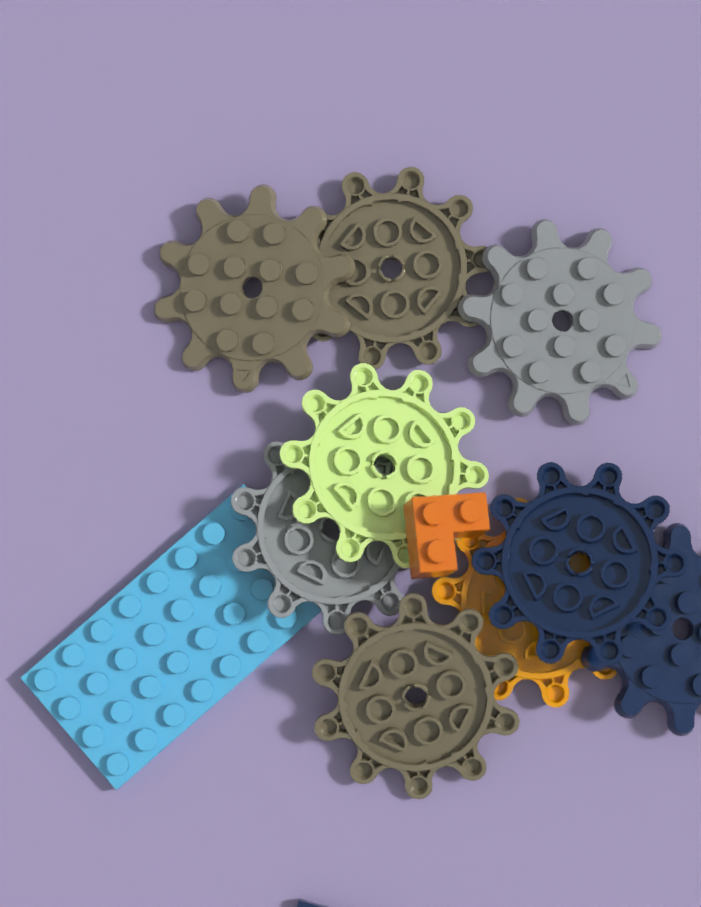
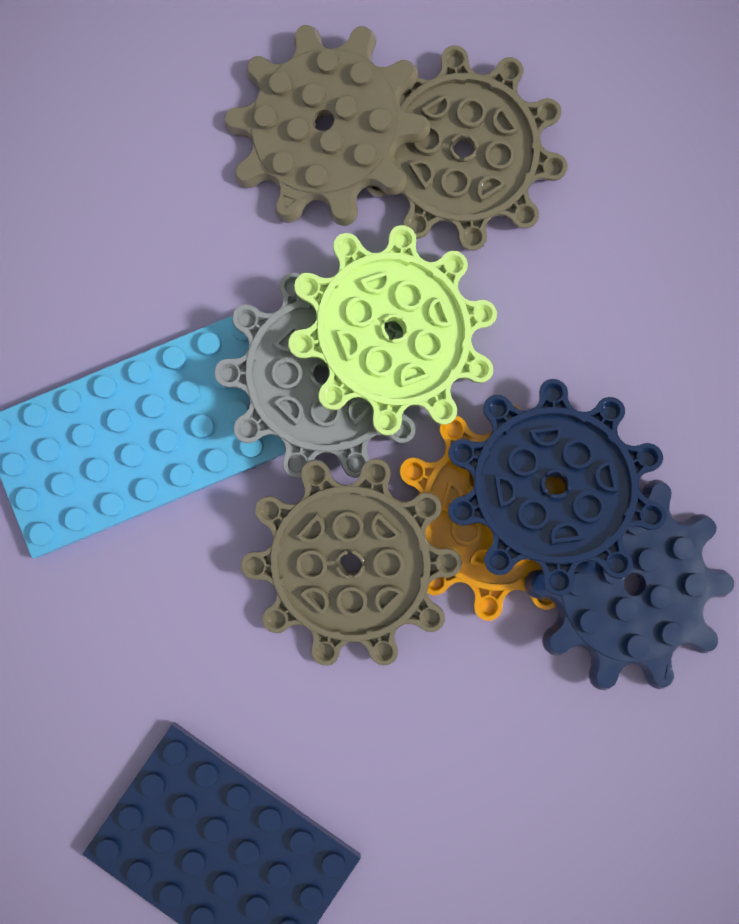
camera: 20 degrees right, 0 degrees up
(433, 526) = (426, 398): orange brick -> none
(521, 328) = (571, 259): light grey plate -> none

